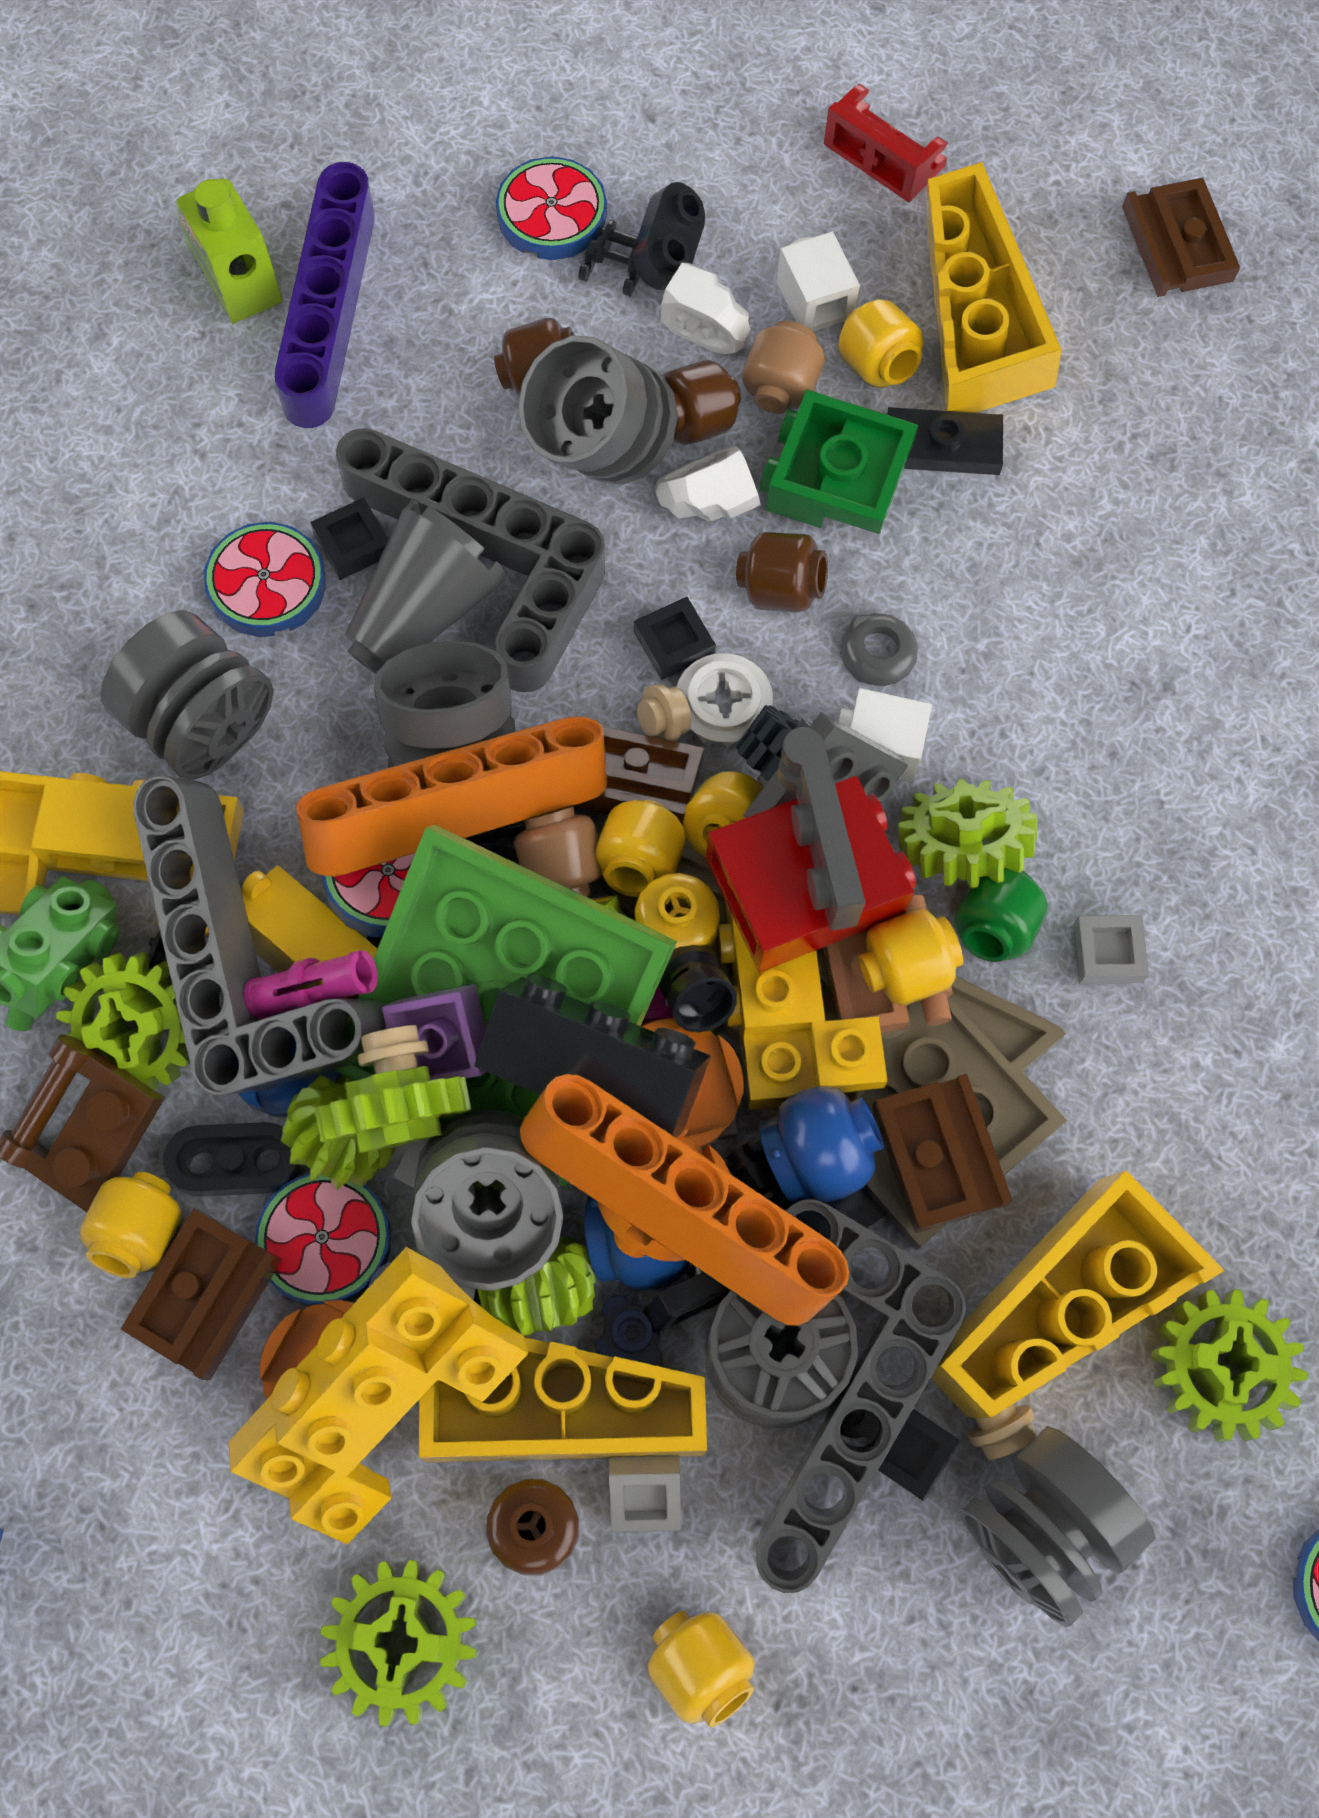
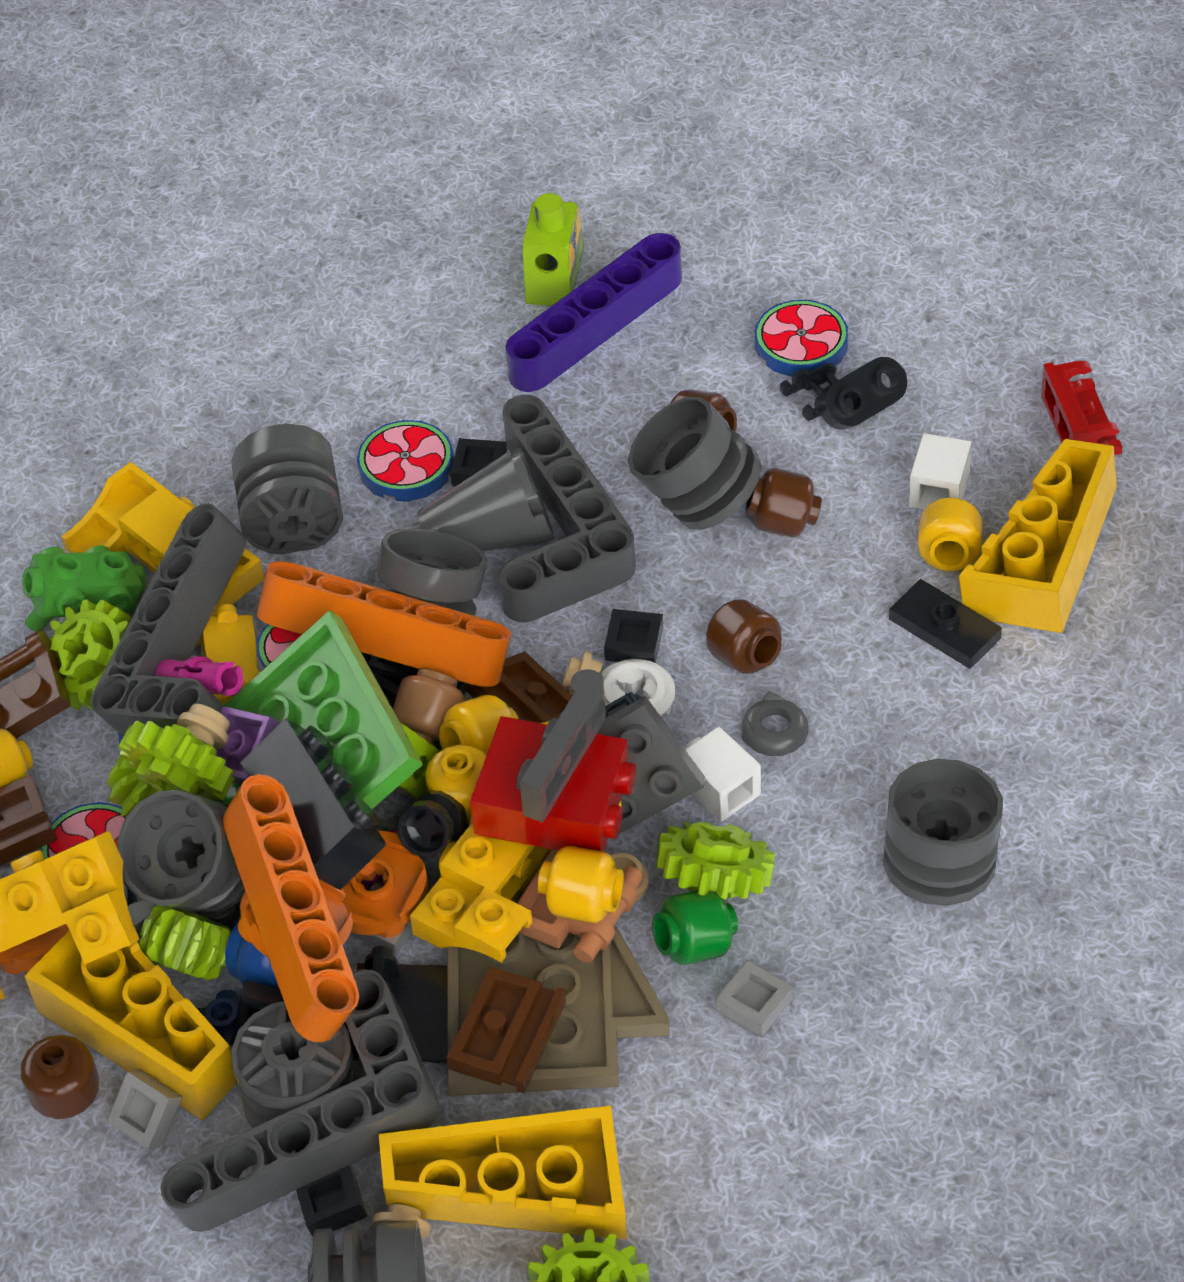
camera: 45 degrees right, 20 degrees down
(234, 1159) = (87, 766): black plate -> none
(701, 1667) = (84, 1226): yellow head -> none
(704, 311) = (843, 448): white rock -> none
(709, 487) = (744, 559): white rock -> none
(782, 366) = (863, 512): medium nougat head -> none
(821, 1144) = (427, 964): blue piece -> none
(837, 463) = (843, 589): green plate -> none
(1152, 665) = (942, 831): none -> dark grey wheel

